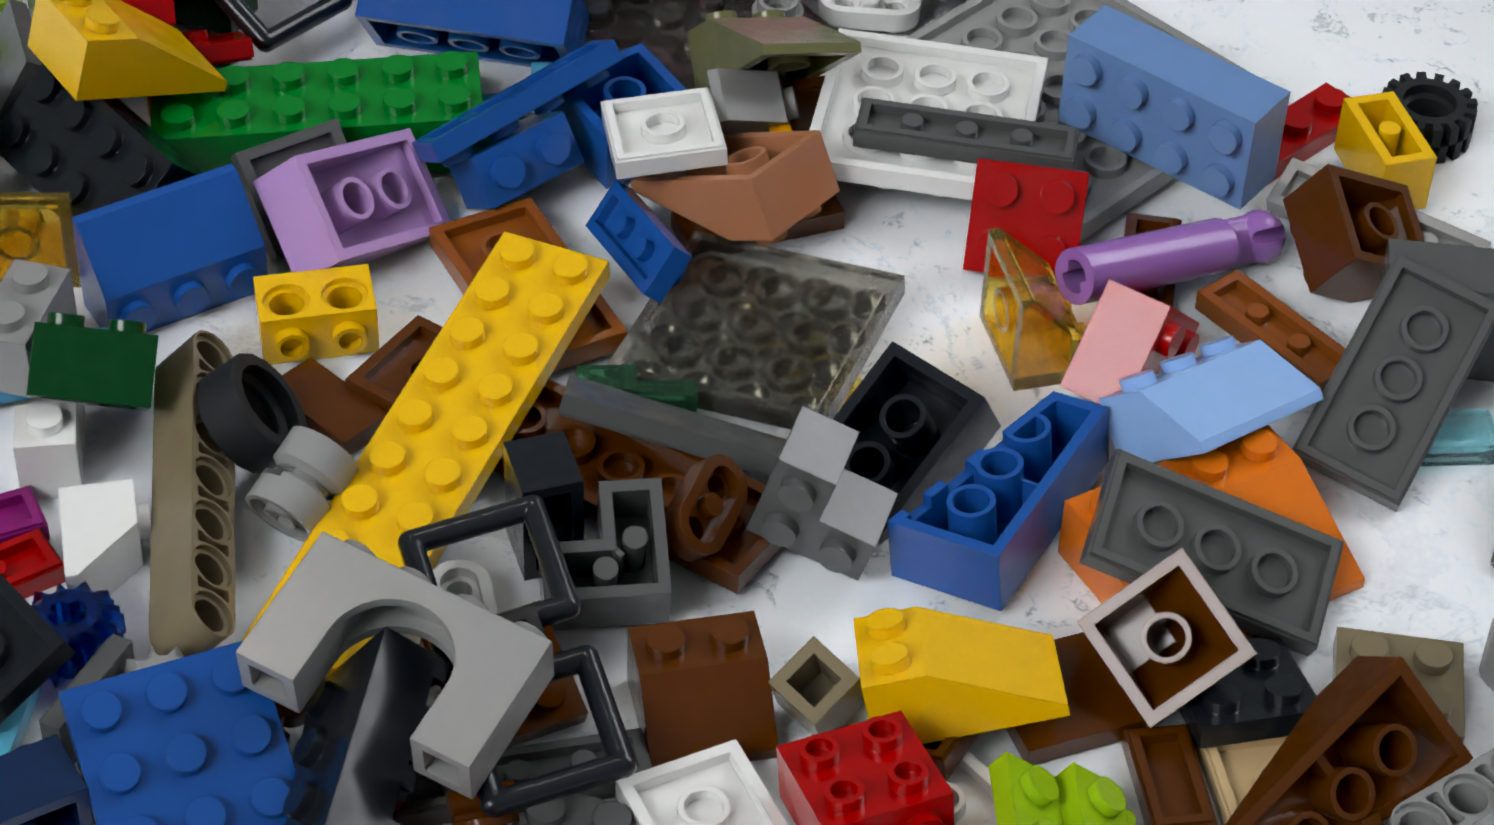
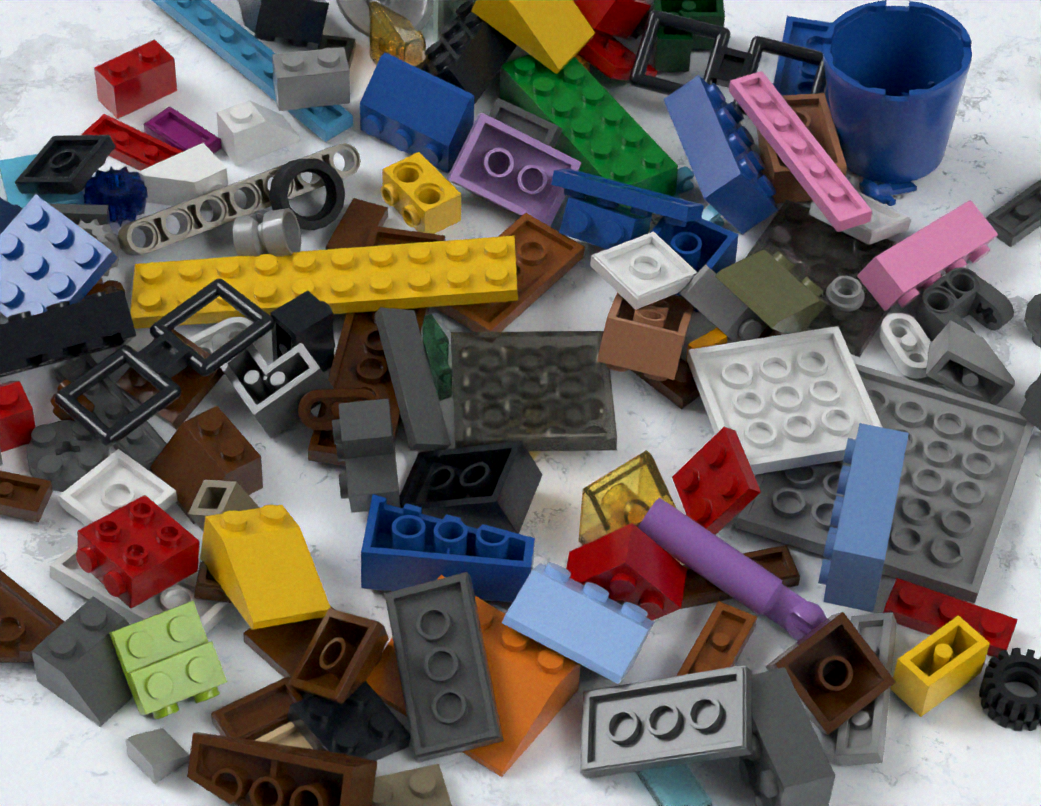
camera: 65 degrees right, 5 degrees up
(92, 363) = (288, 117): dark green brick -> none
(350, 595) = (125, 344): light grey arch -> none
(639, 242) = (567, 308): blue plate -> none
(962, 135) = (762, 422): dark grey tile -> none

